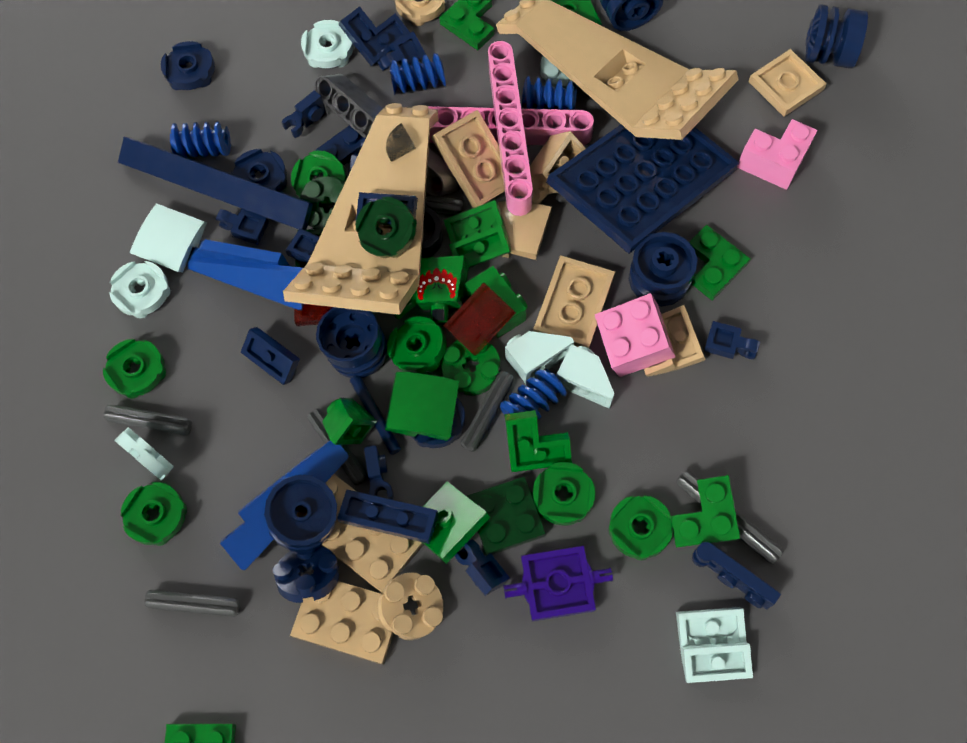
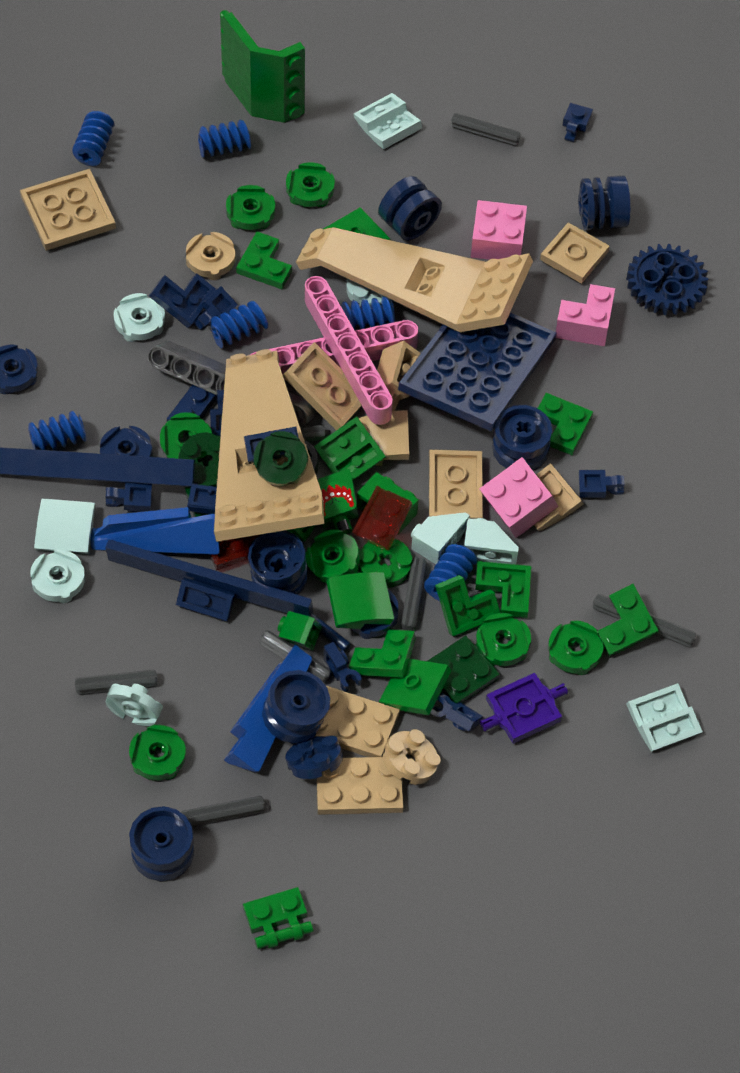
camera: 25 degrees left, 10 degrees down
(105, 626) = (161, 843): none -> dark blue wheel
(140, 382) = (84, 657): green plate -> none
(283, 337) = (179, 569): none -> dark blue tile
(307, 111) = (148, 382): dark blue plate -> none
(388, 516) = (368, 691): dark blue plate -> none
(398, 143) = (259, 386): clear smoke tile -> none
(429, 482) = (388, 661): none -> green plate
(597, 431) = (511, 581): none -> green plate
(714, 39) = (498, 230): none -> bright pink brick
(735, 575) = (663, 660): dark blue plate -> none
(888, 148) = (679, 291): none -> dark blue gear

